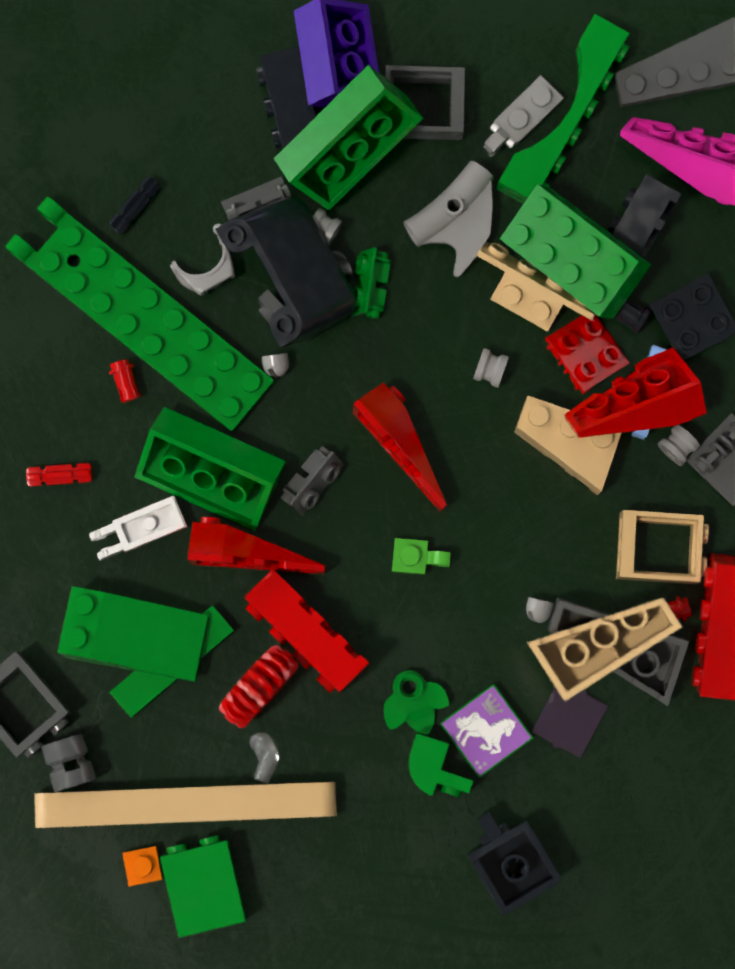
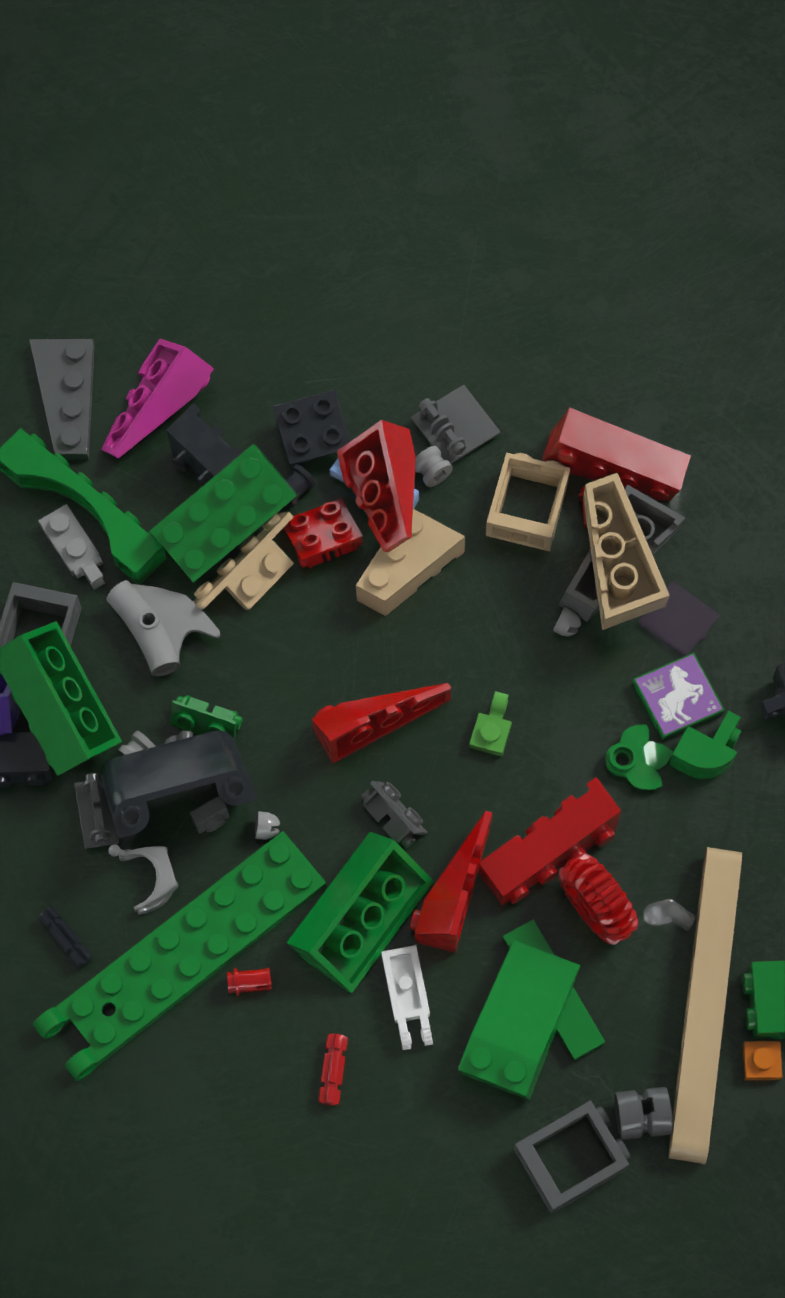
camera: 70 degrees left, 15 degrees down
(491, 367) = (318, 620): light grey wheel -> none

